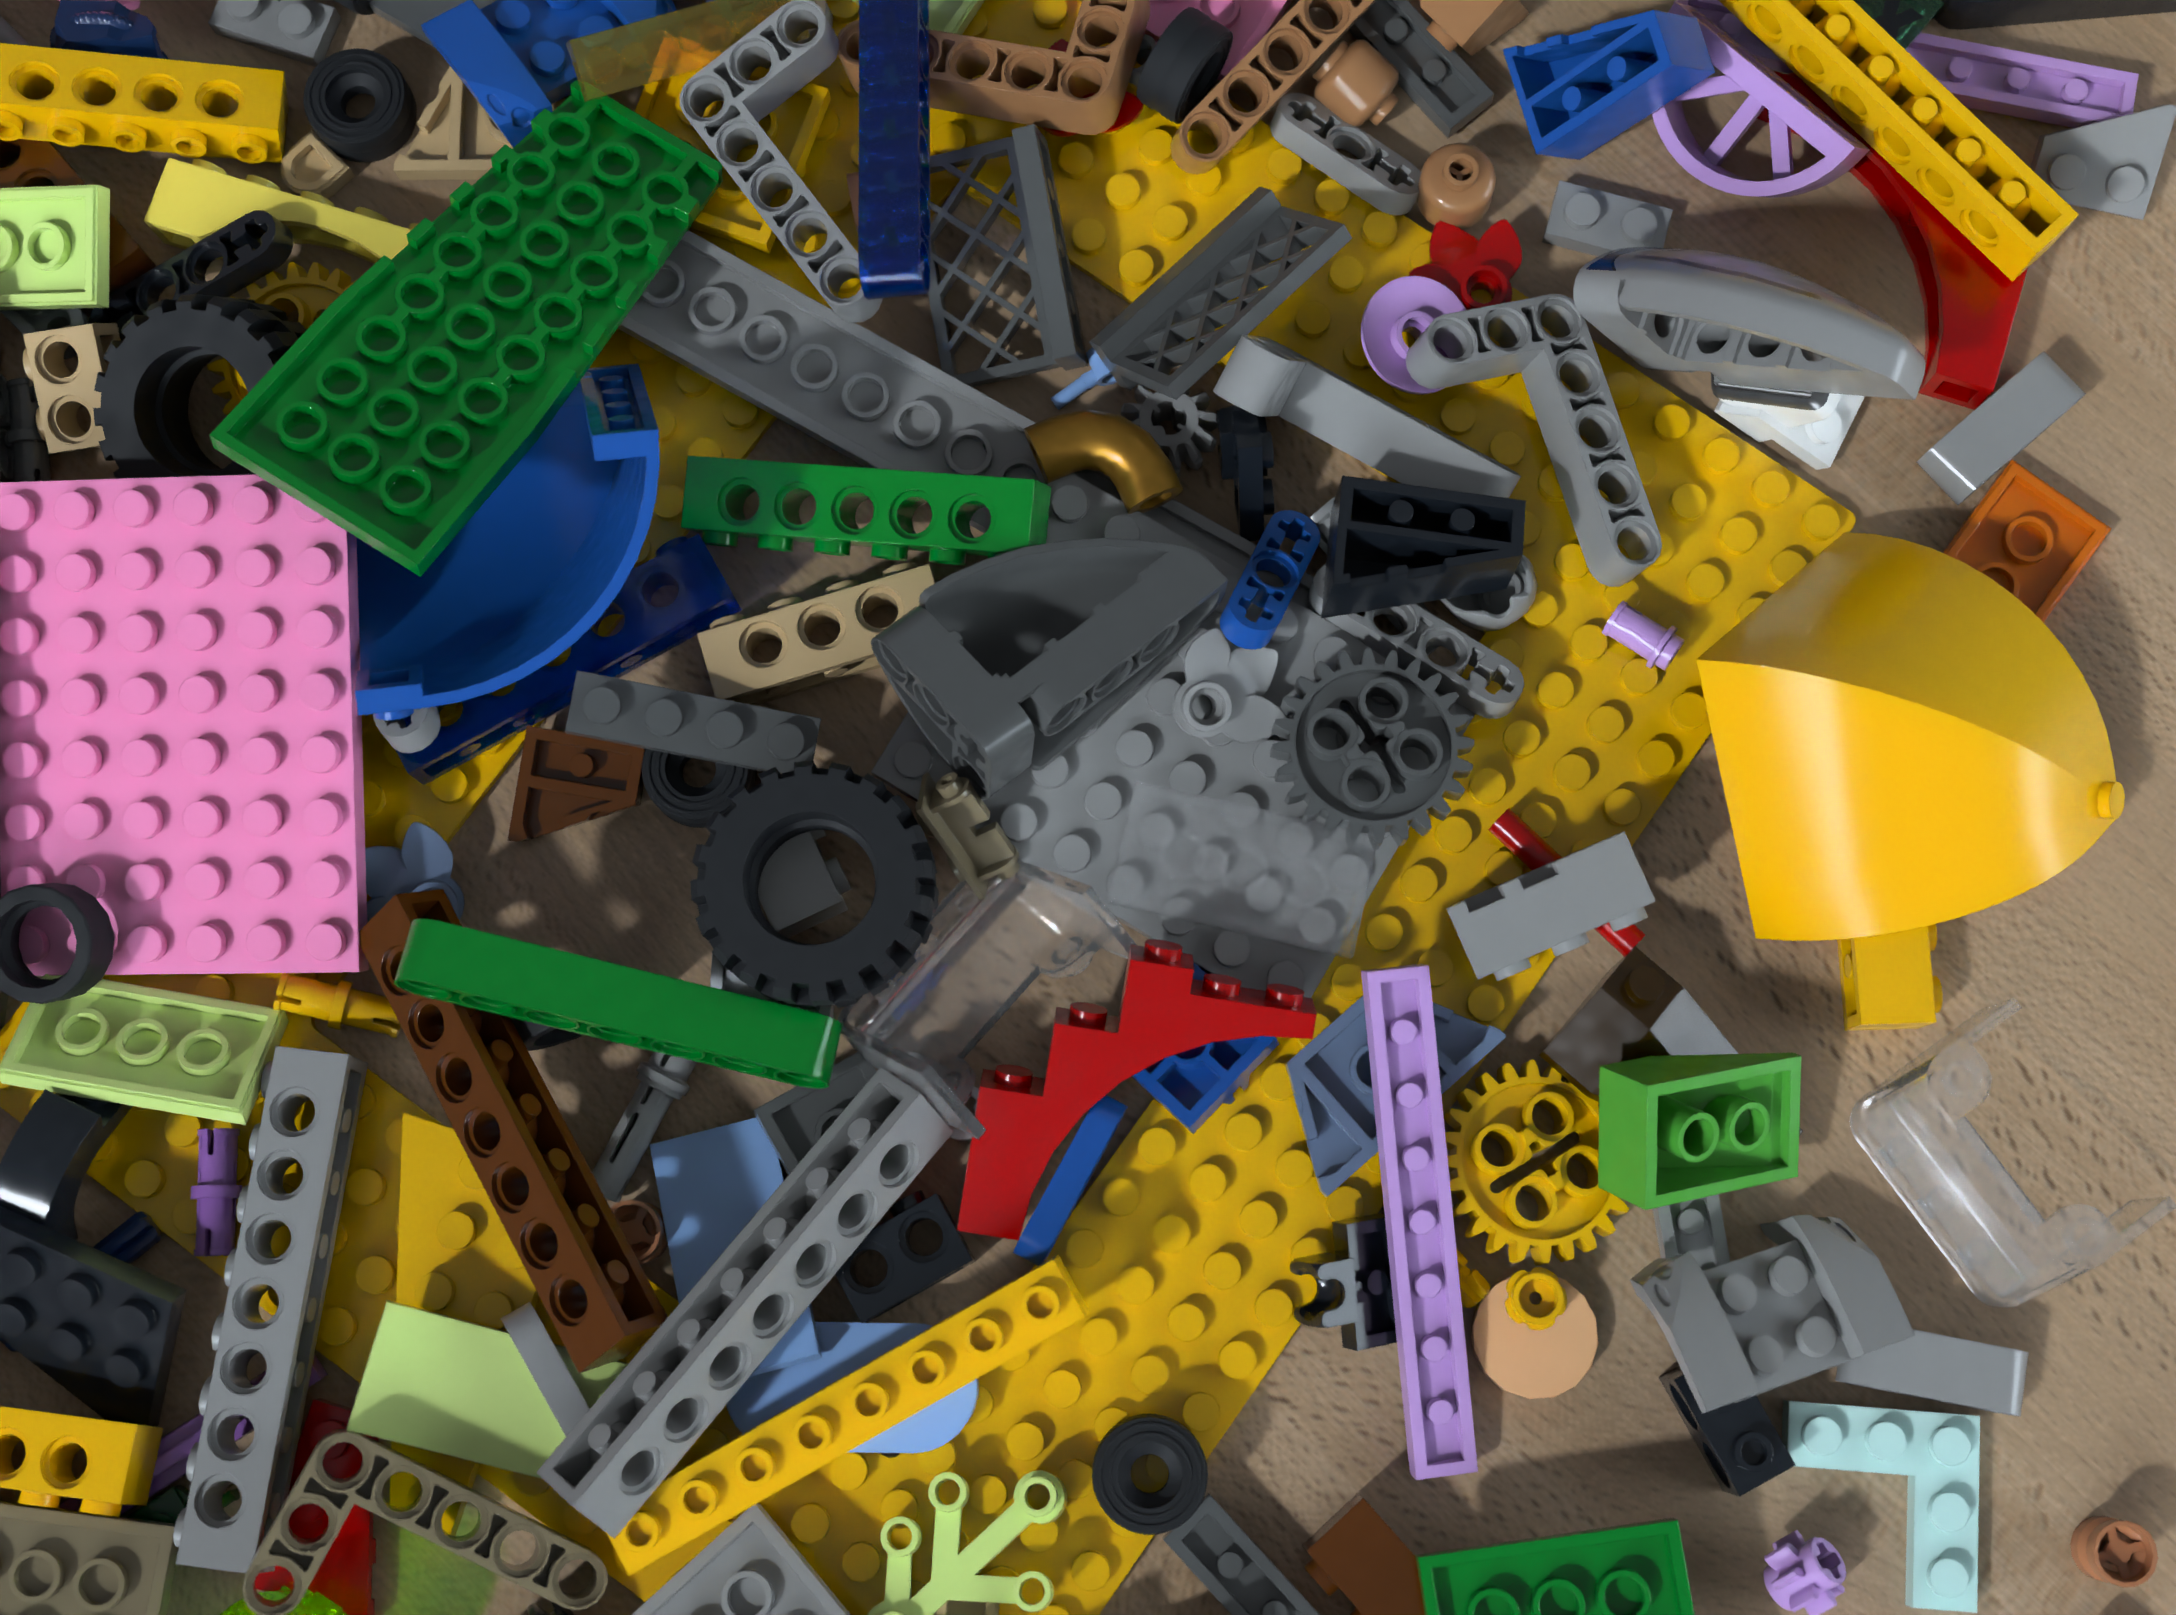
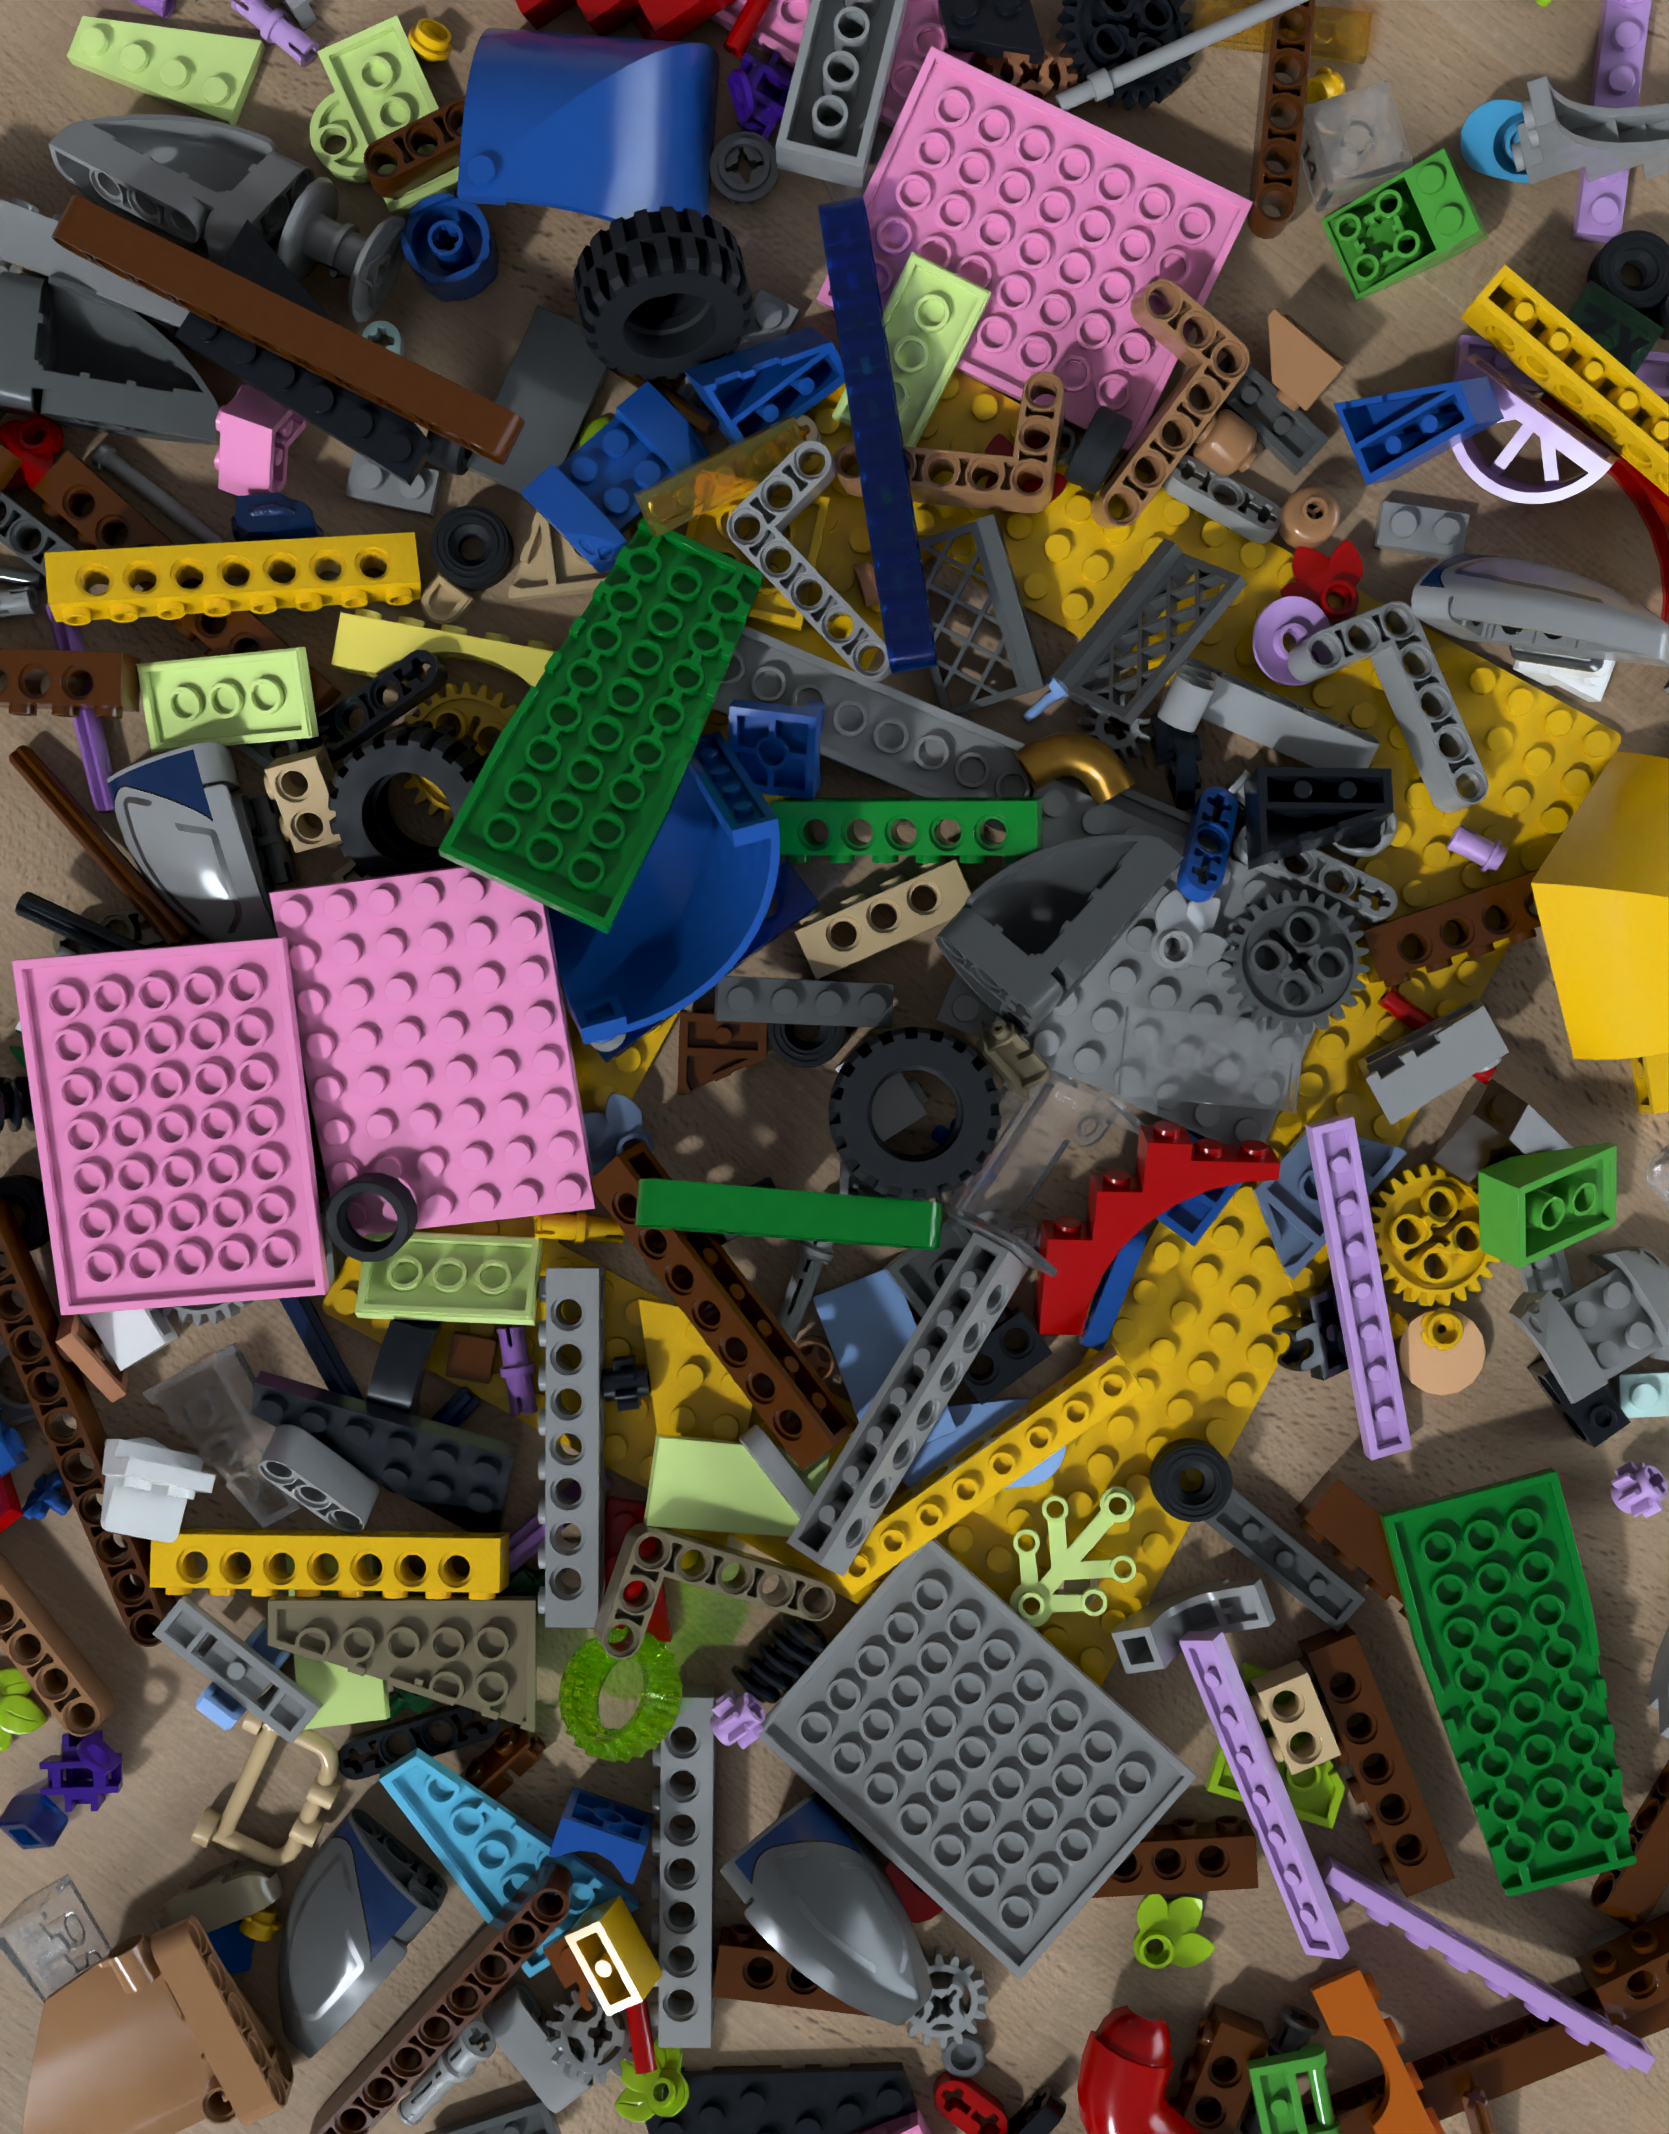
camera: 15 degrees left, 10 degrees up
(157, 1167) = (472, 1357): none -> reddish brown tile
(363, 1227) = (626, 1382): none -> black gear
(709, 388) = (778, 745): none -> blue piece
(1618, 713) = (1426, 927): none -> reddish brown brick

